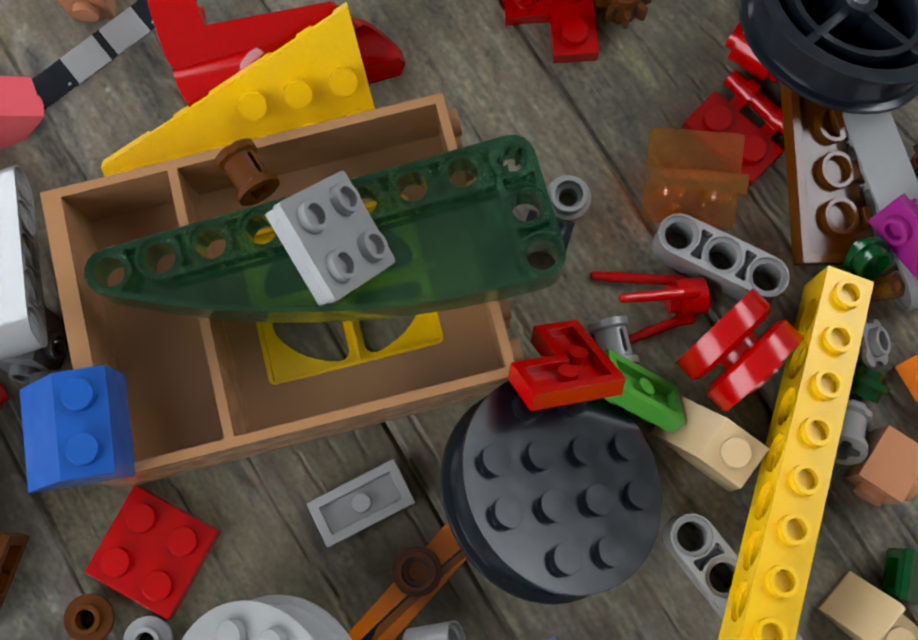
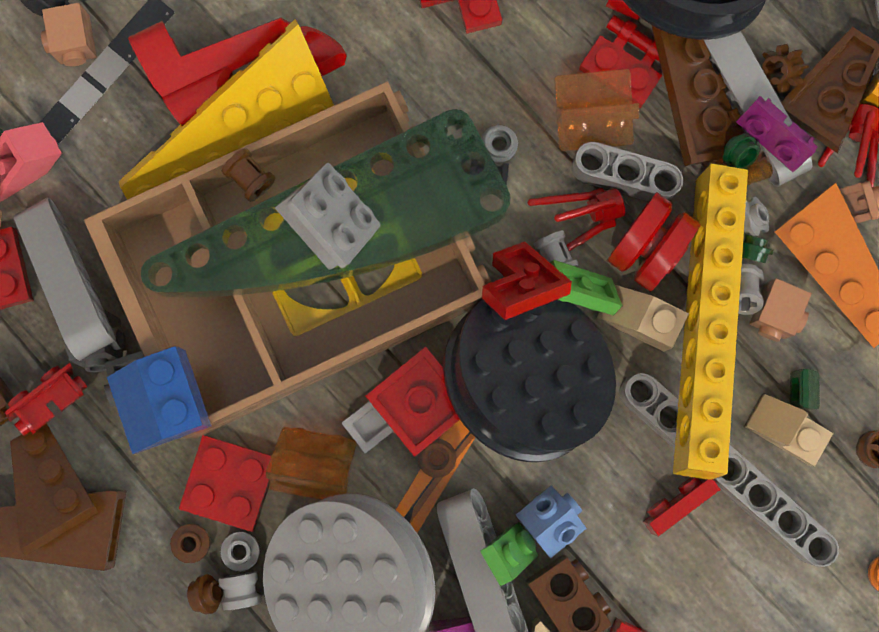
camera: 20 degrees left, 5 degrees up
(257, 547) = (311, 463): none -> clear orange bracket
(400, 495) = (415, 402): none -> red plate

